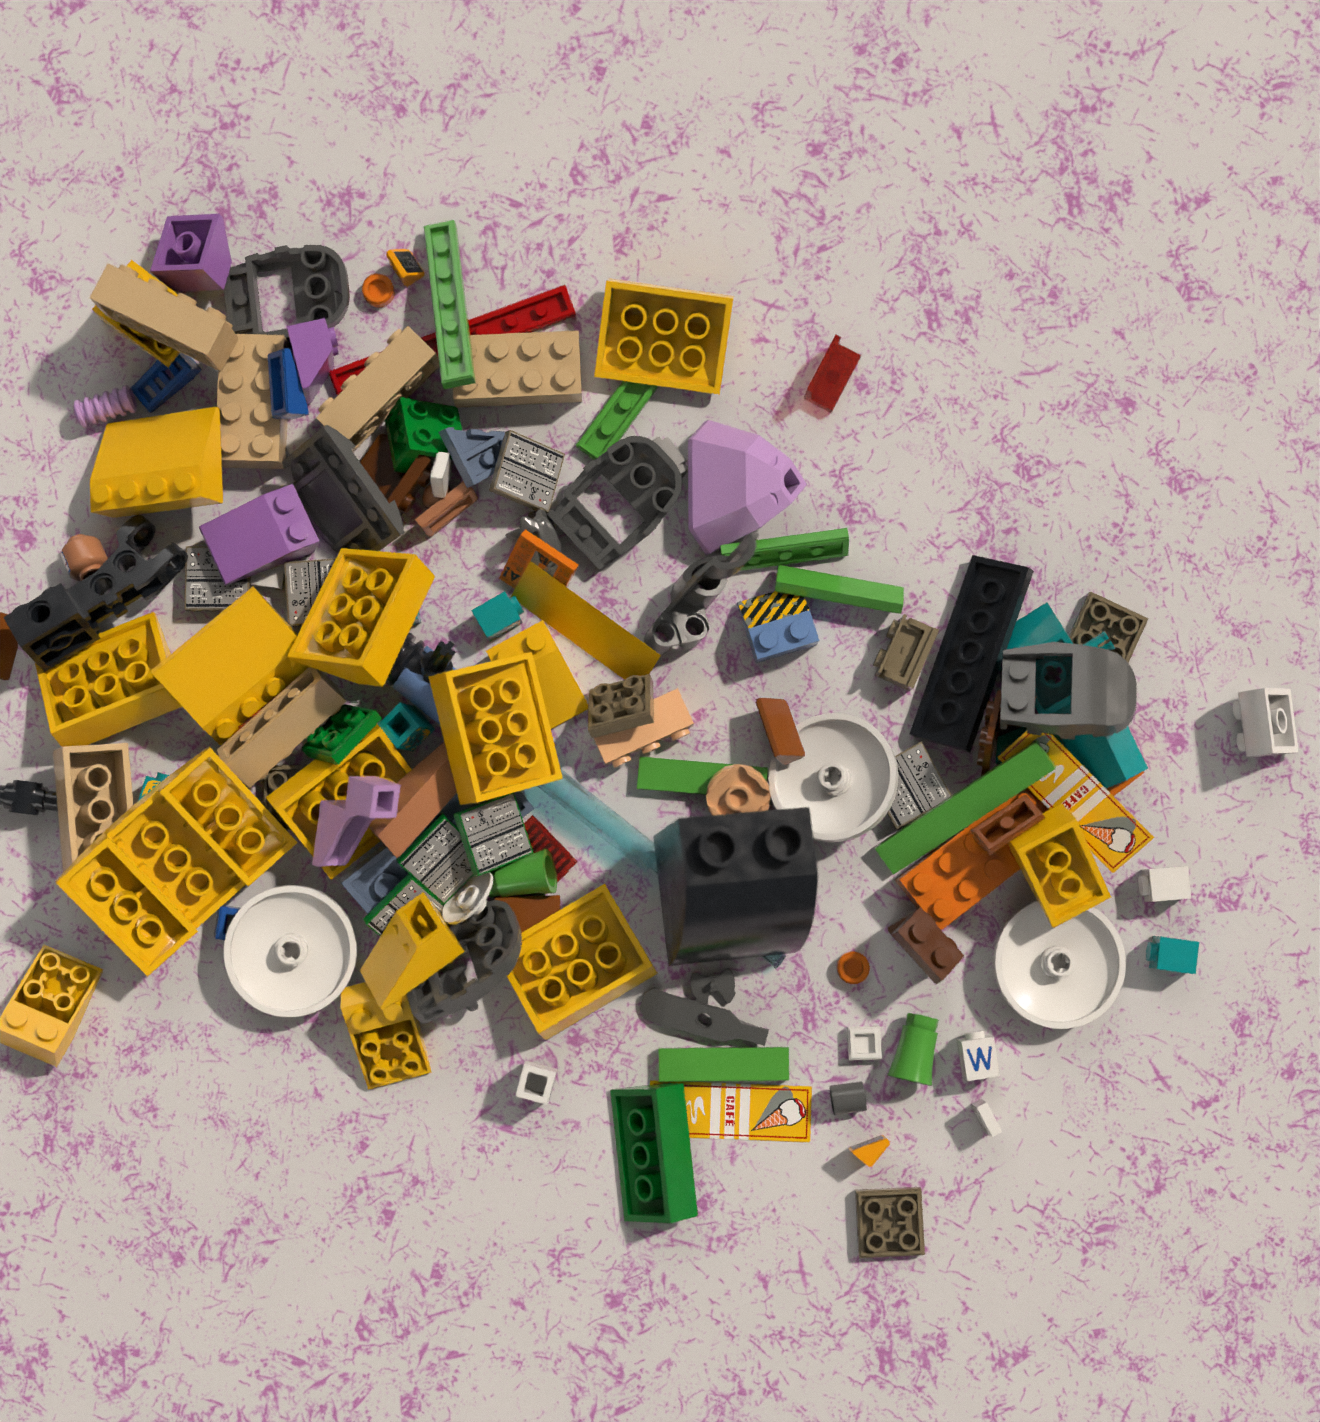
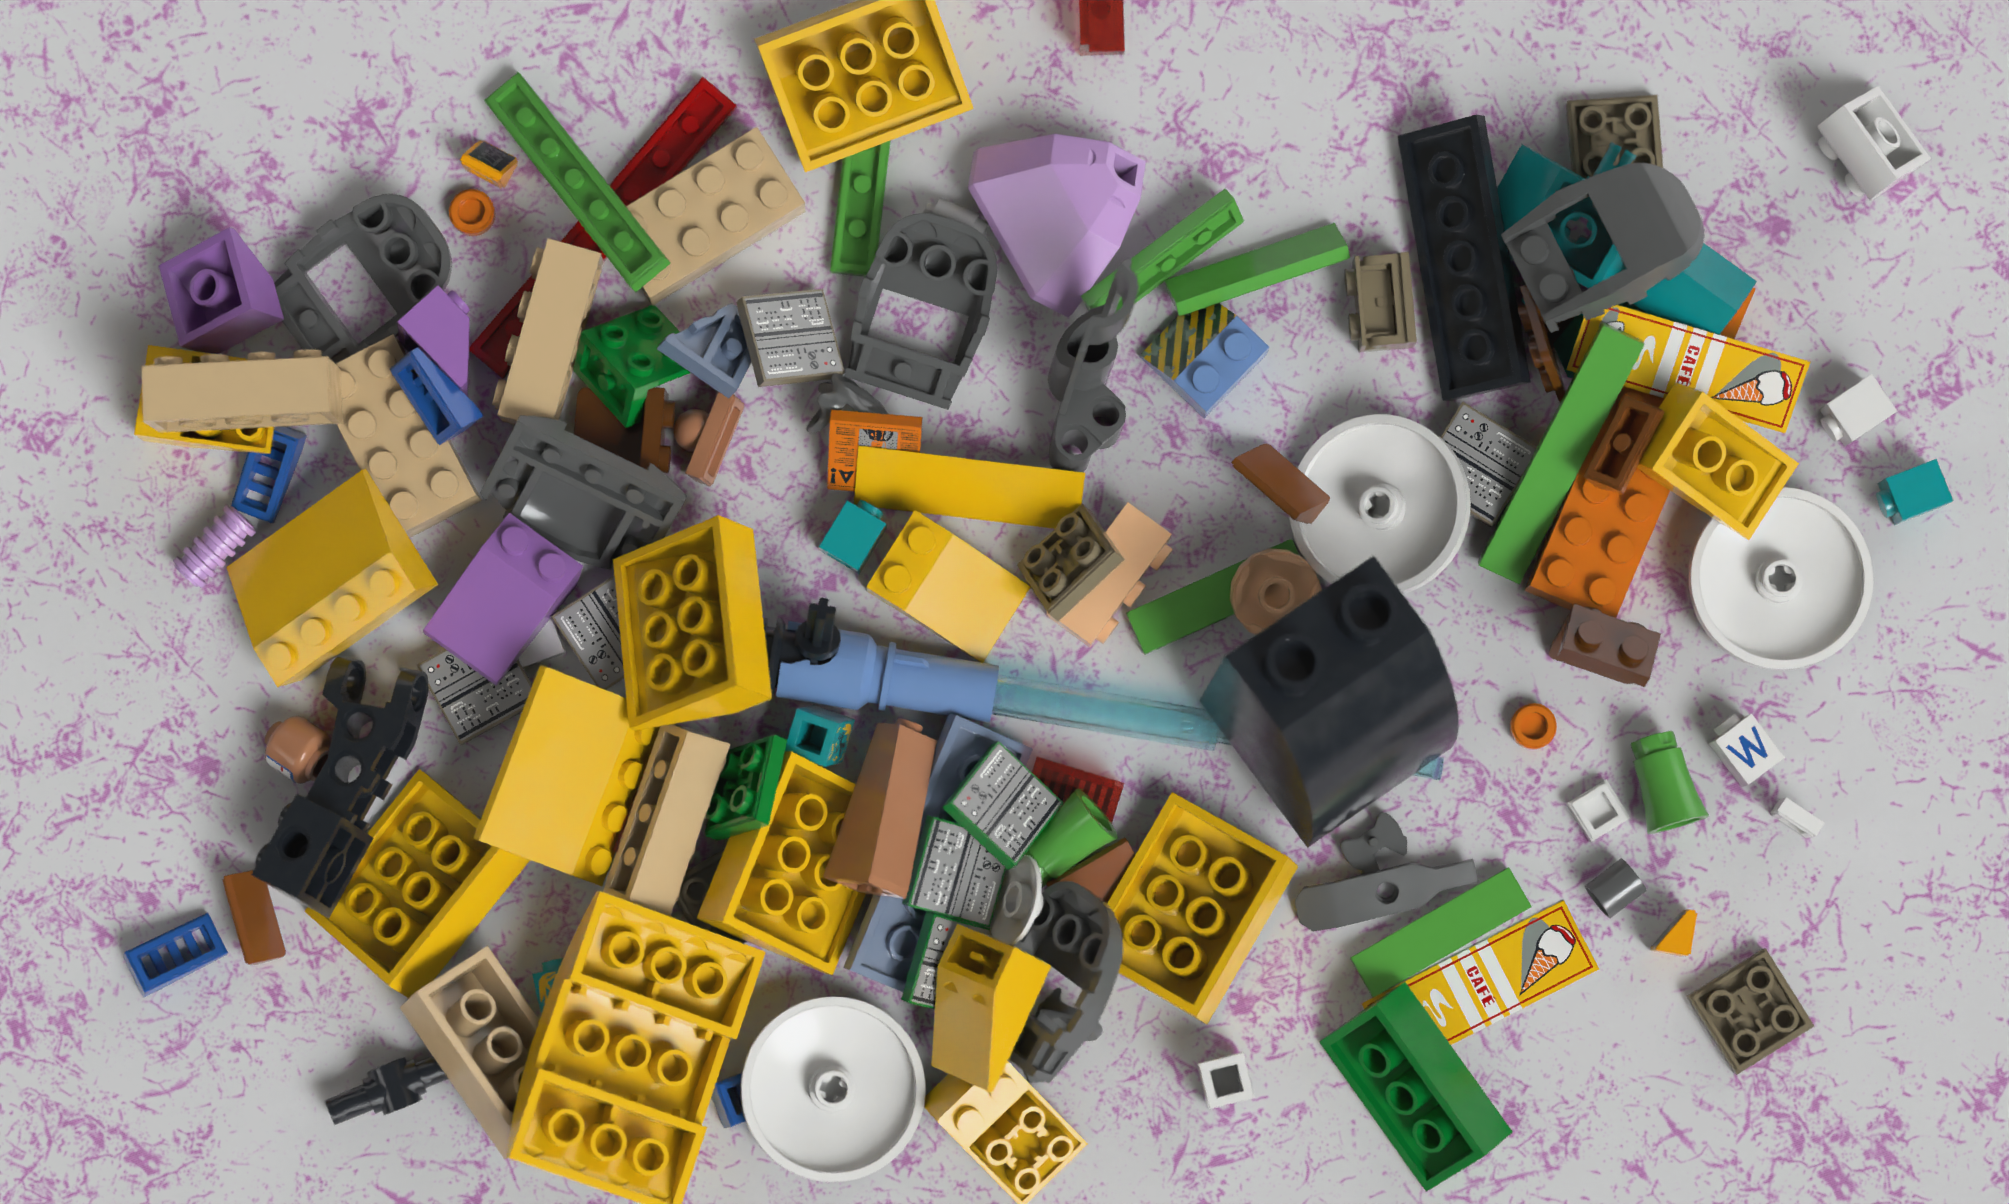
camera: 25 degrees left, 0 degrees up
(345, 821) = (816, 891): lavender arch -> none
(441, 474) = (687, 400): white tile -> none
(495, 728) = (934, 674): yellow slope -> none

